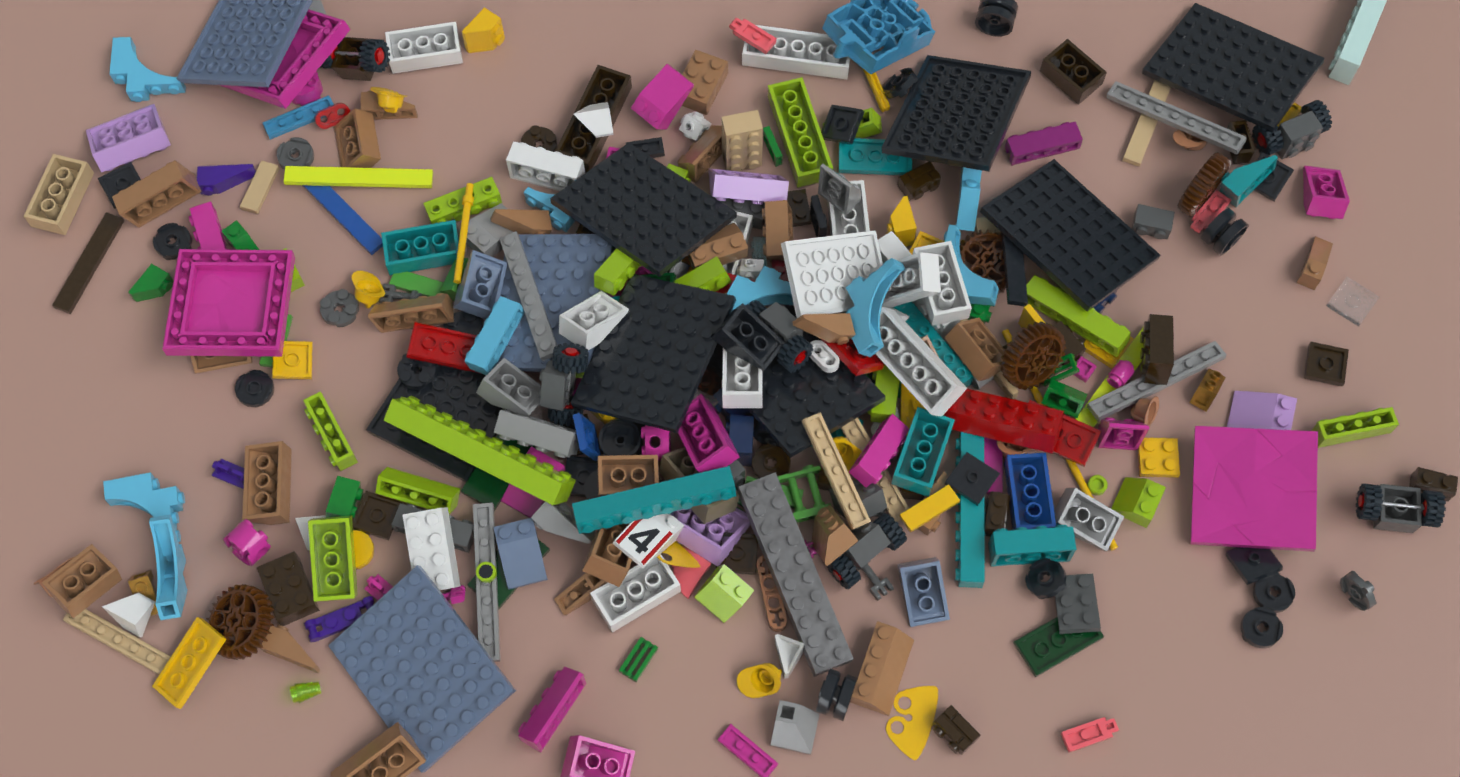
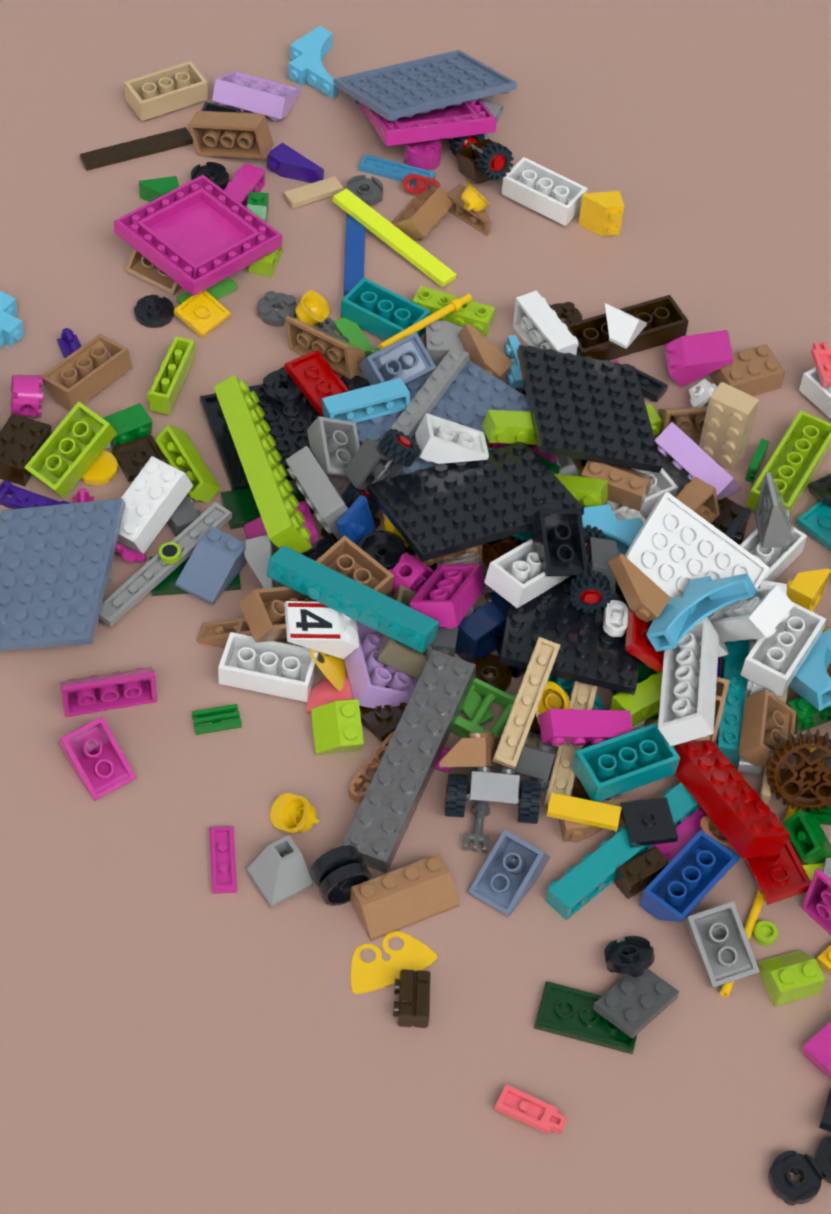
camera: 40 degrees right, 15 degrees down
(788, 652) = (337, 818): white slope -> none
(1029, 545) = (639, 913): teal brick -> none

